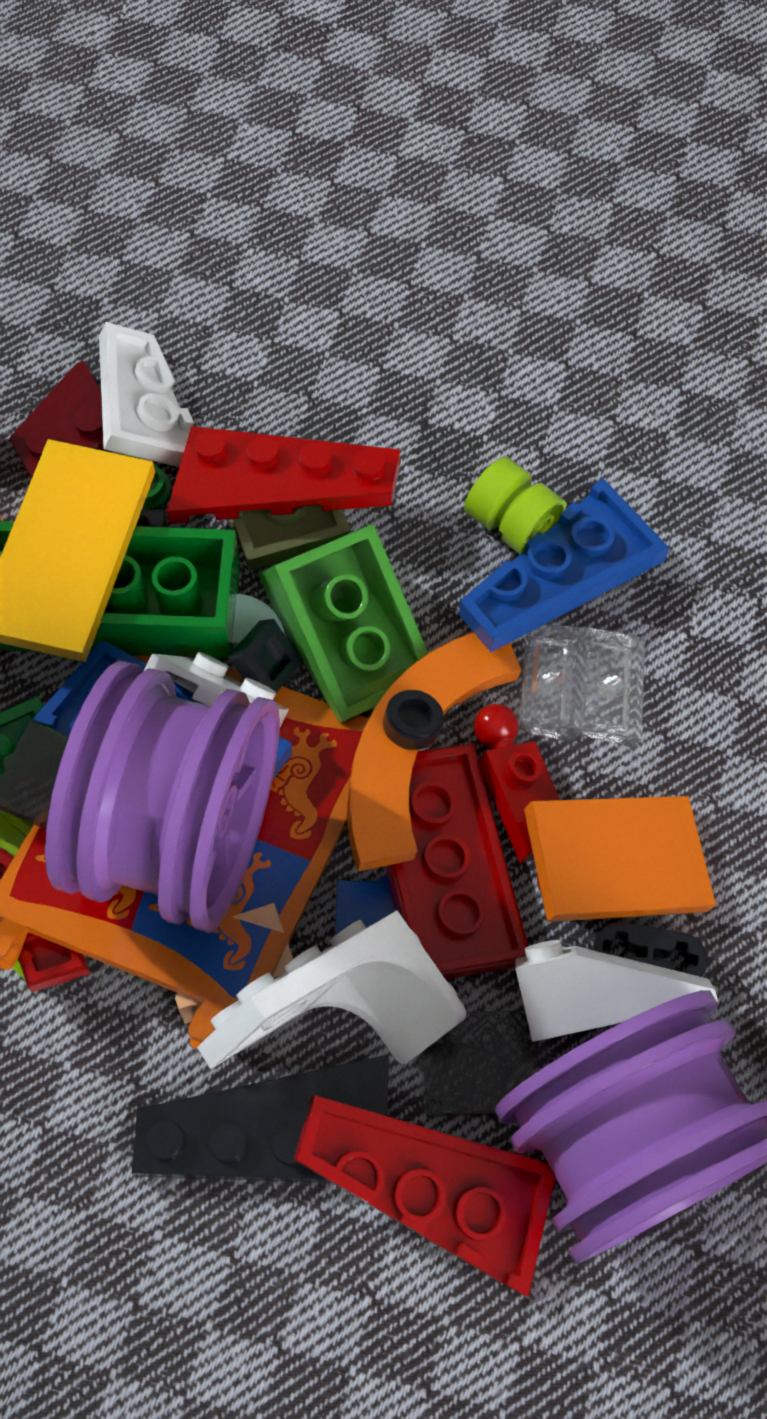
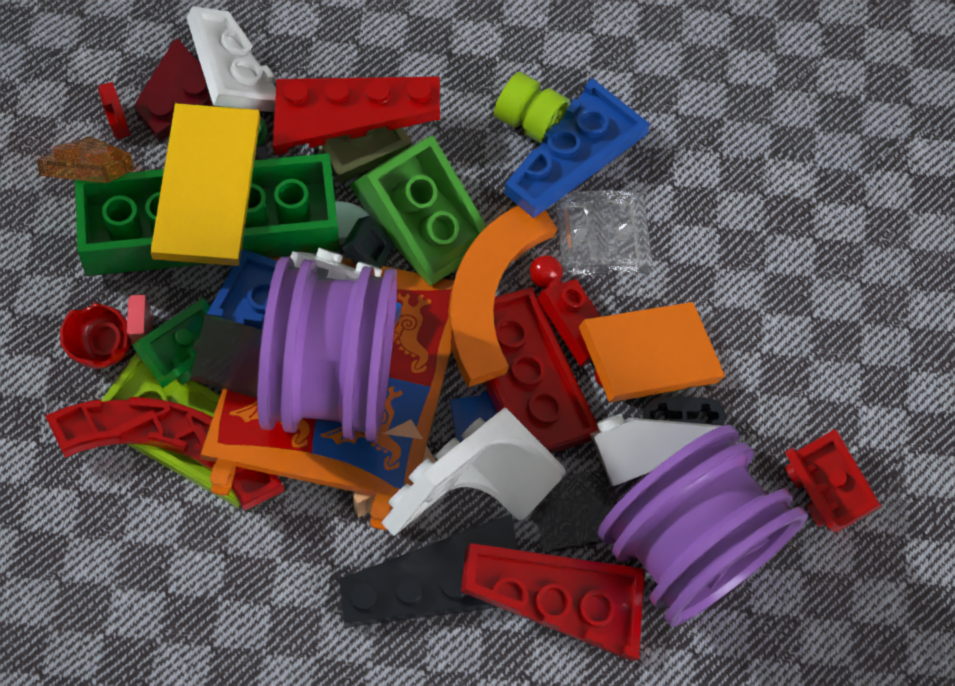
camera: 15 degrees left, 0 degrees up
(413, 719) = (487, 274): black tile -> none

